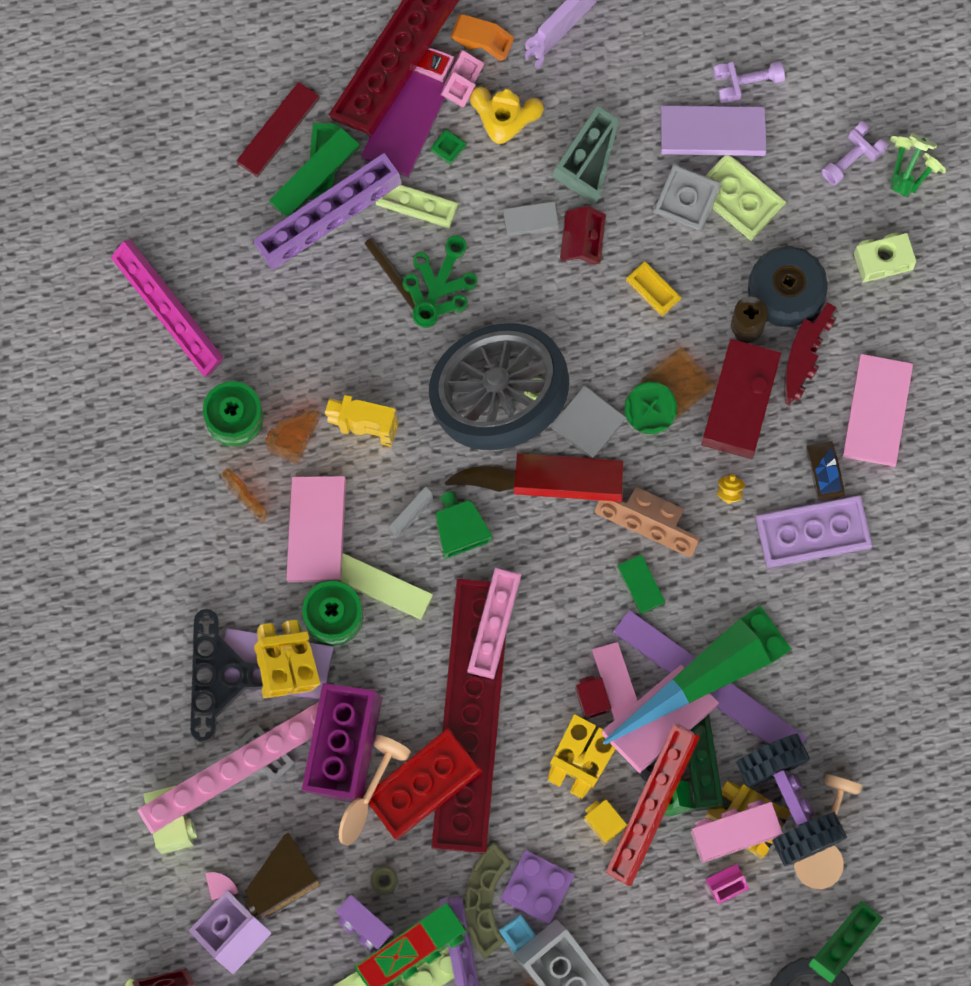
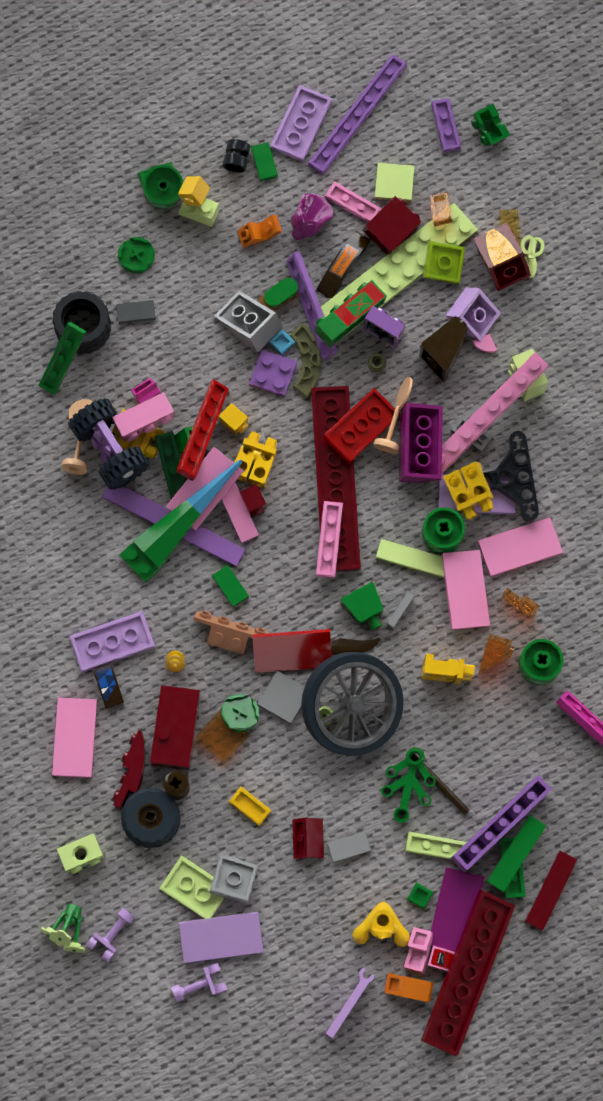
camera: 170 degrees right, 0 degrees up
(229, 580) = (520, 547): none -> bright pink tile
(587, 157) = (313, 899): sand green wedge -> none

